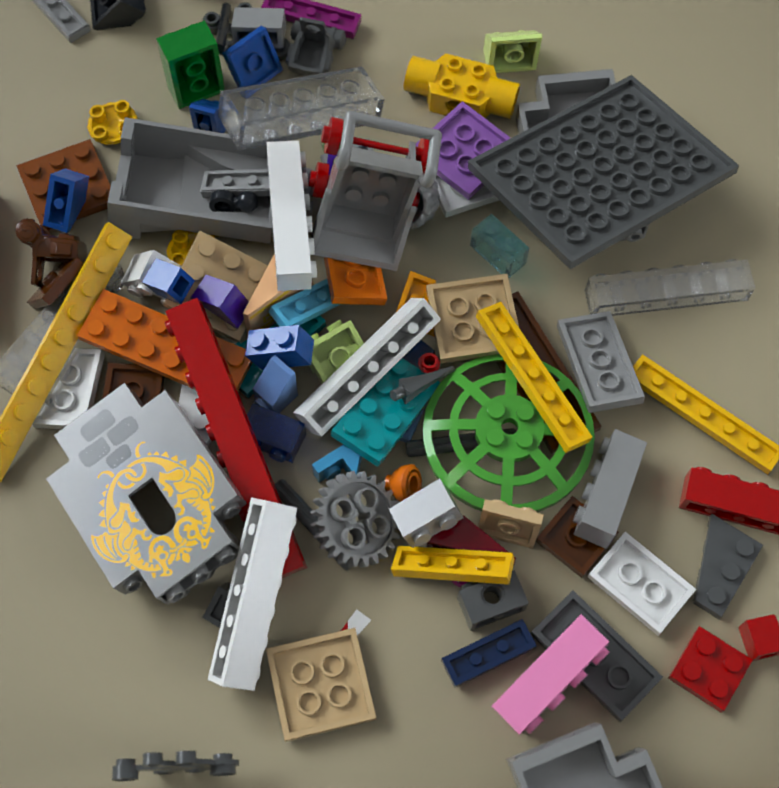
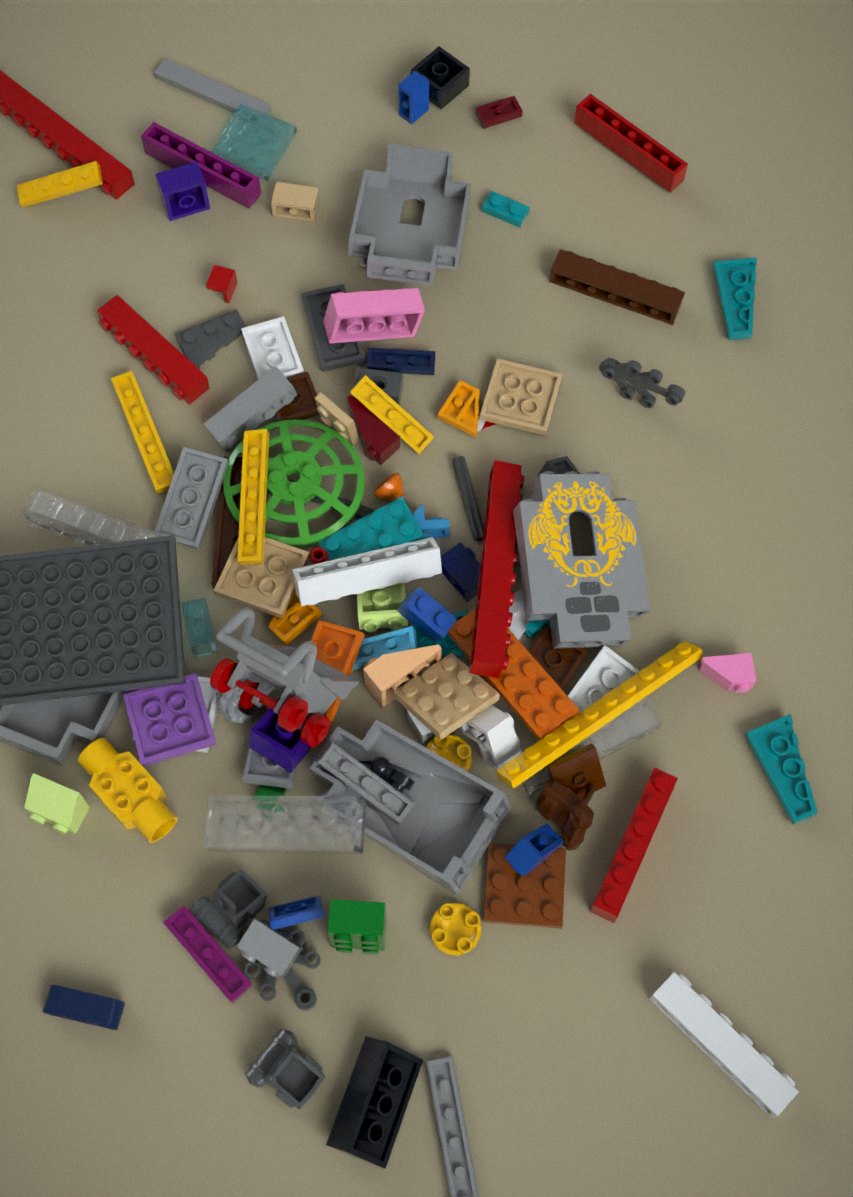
camera: 150 degrees left, 0 degrees up
(168, 281) = (488, 696): brick -> none
(205, 116) = (366, 875): blue slope -> none
(222, 299) = (453, 673): dark purple slope -> none
(223, 27) = (303, 966): black bar -> none
(252, 594) = (538, 454): white brick -> none
(275, 386) = (447, 595): medium blue slope -> none
(289, 216) = (358, 708): white brick -> none
(336, 528) = (454, 474): light grey gear -> none
(381, 629) = (462, 408): none -> light orange wing
(413, 386) = (344, 536): dark grey piece -> none
(426, 513) = (391, 446): brick -> none
(710, 669) = (266, 288): red plate -> none

